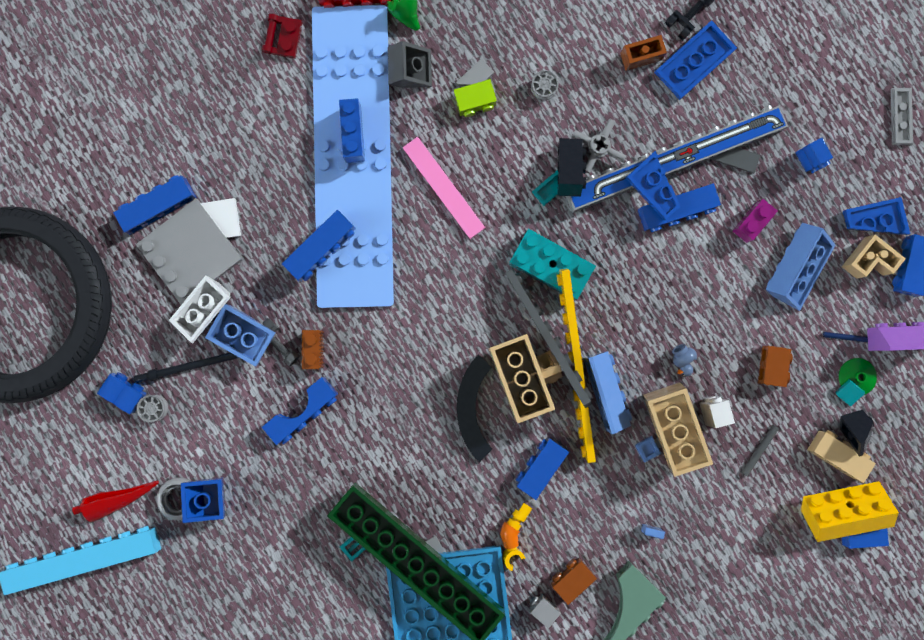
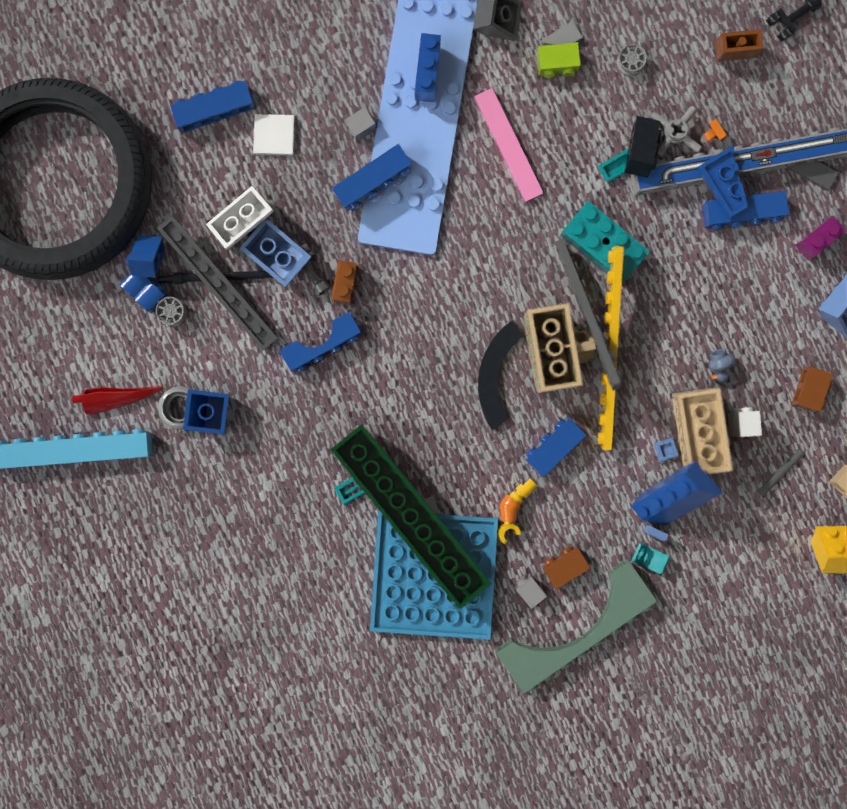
camera: 15 degrees right, 0 degrees up
(117, 361) = (146, 256): none -> blue brick
(188, 249) = (236, 158): light grey plate -> none
(190, 373) = (217, 282): none -> dark grey plate
(299, 194) = (361, 123): none -> light grey brick
(607, 392) = (636, 381): medium blue slope -> none
(637, 138) = (716, 131): none -> orange tile
(652, 556) = (650, 558): none -> teal bracket
(664, 495) = (676, 495): none -> blue slope
(695, 60) = (790, 63): blue plate -> none

